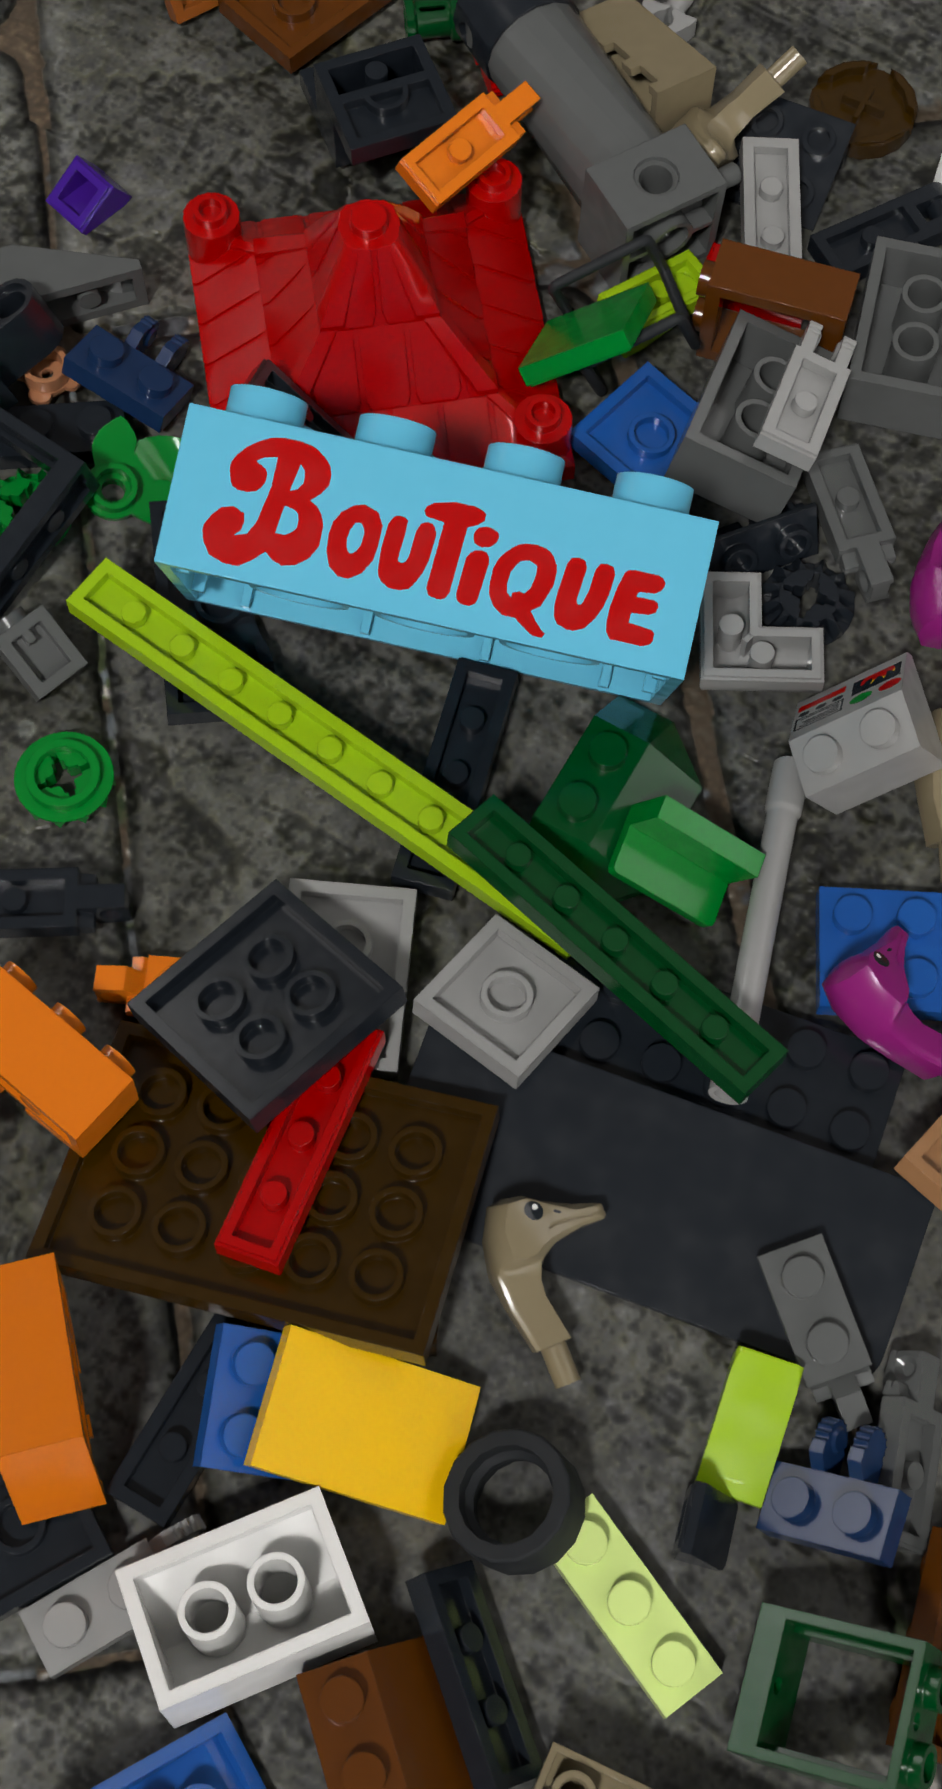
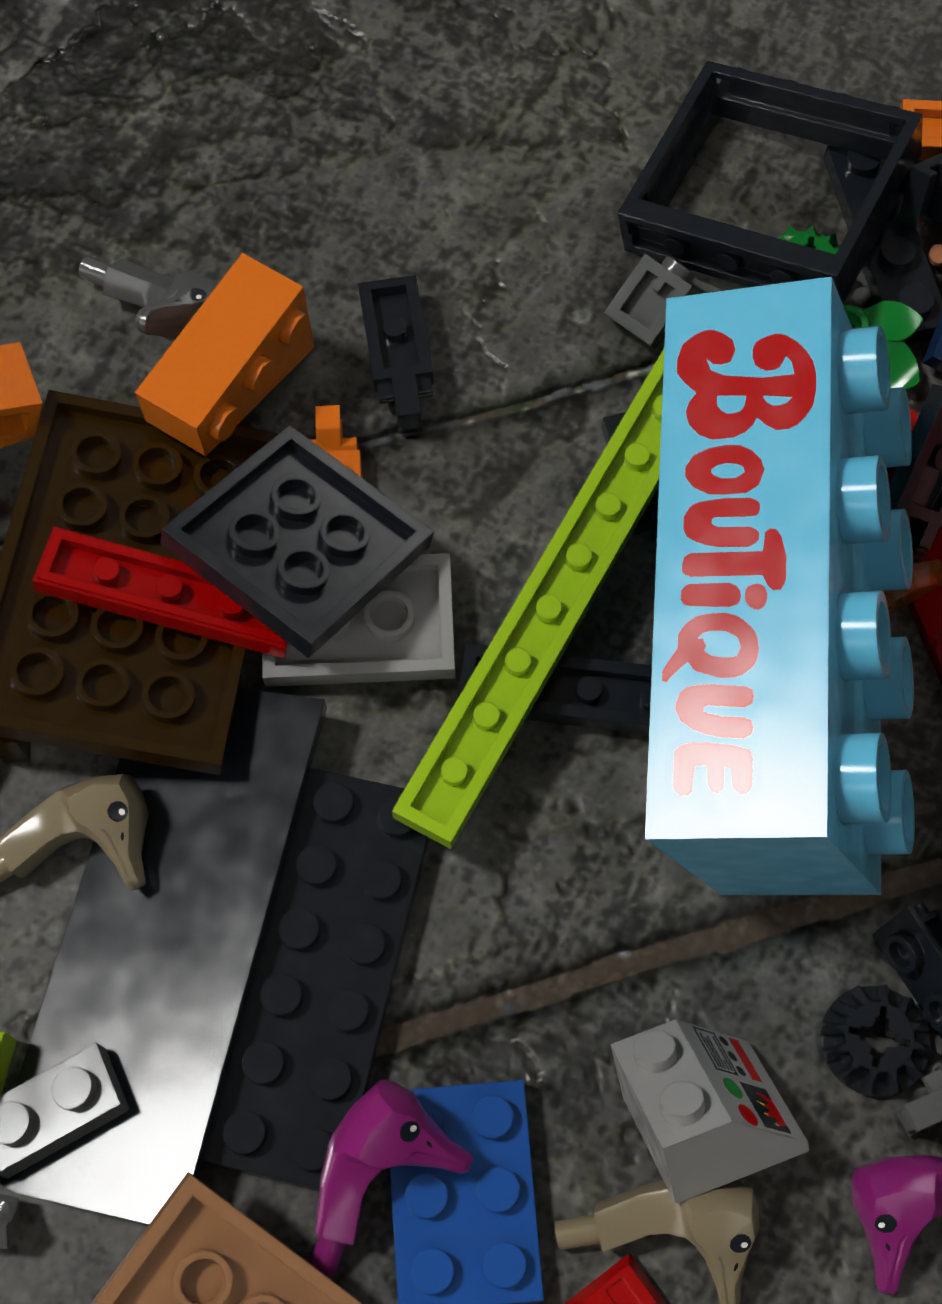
camera: 85 degrees right, 0 degrees up
(77, 755) = (533, 329): green gear -> none
(505, 1000) = (331, 758): light grey plate -> none
(617, 949) = (382, 851): dark green plate -> none
(618, 762) = (574, 851): dark green wedge -> none
(681, 858) = (517, 919): green panel -> none
(742, 653) = (790, 963): light grey brick -> none
(782, 810) = (312, 996): light grey piece -> none

